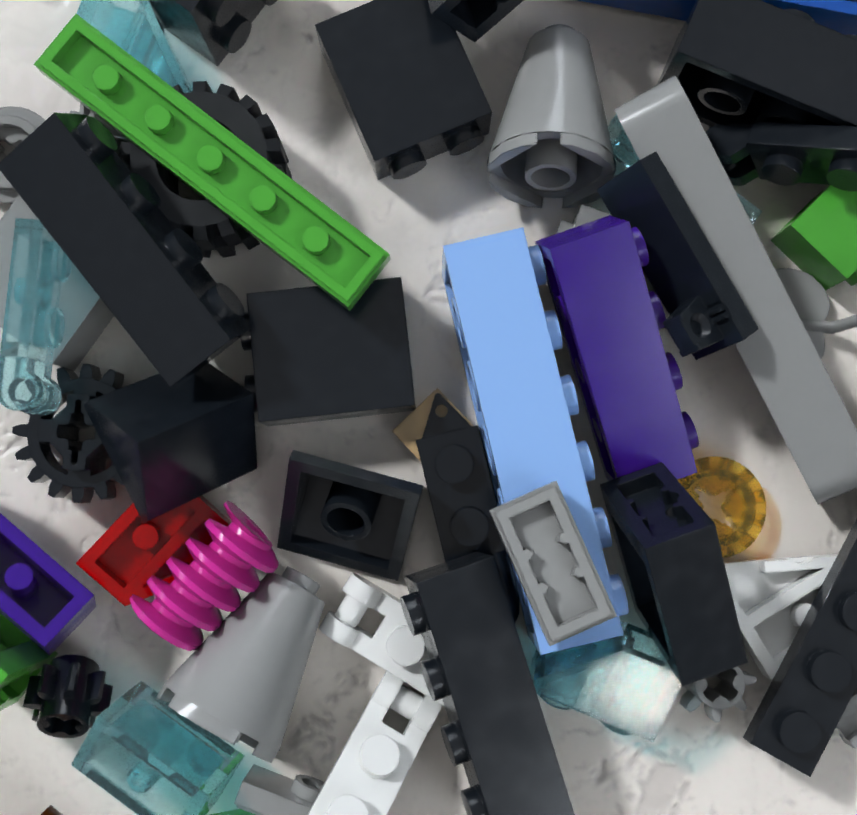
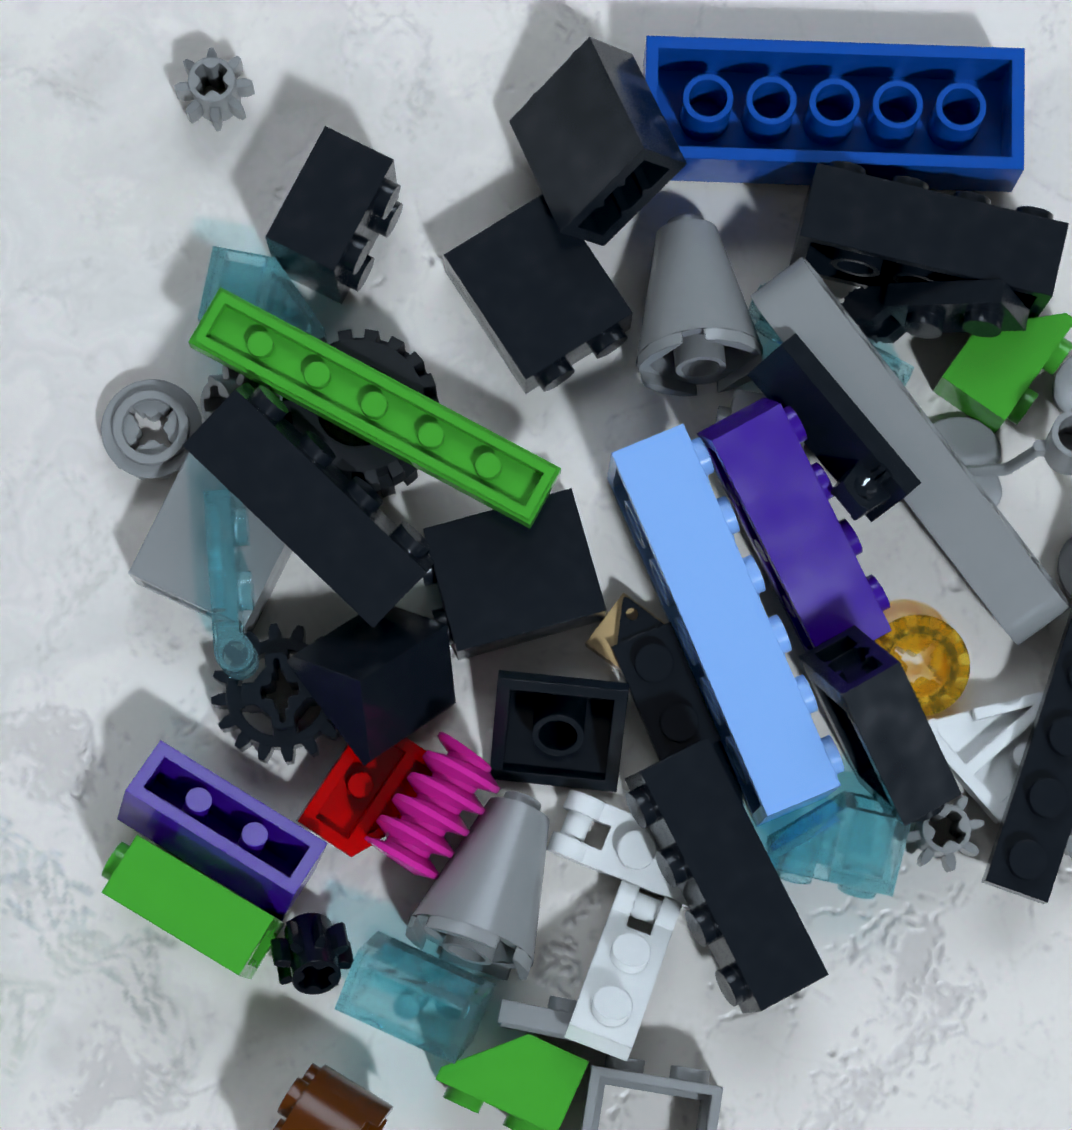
camera: 15 degrees left, 5 degrees down
(552, 563) = (762, 725): light grey plate -> none

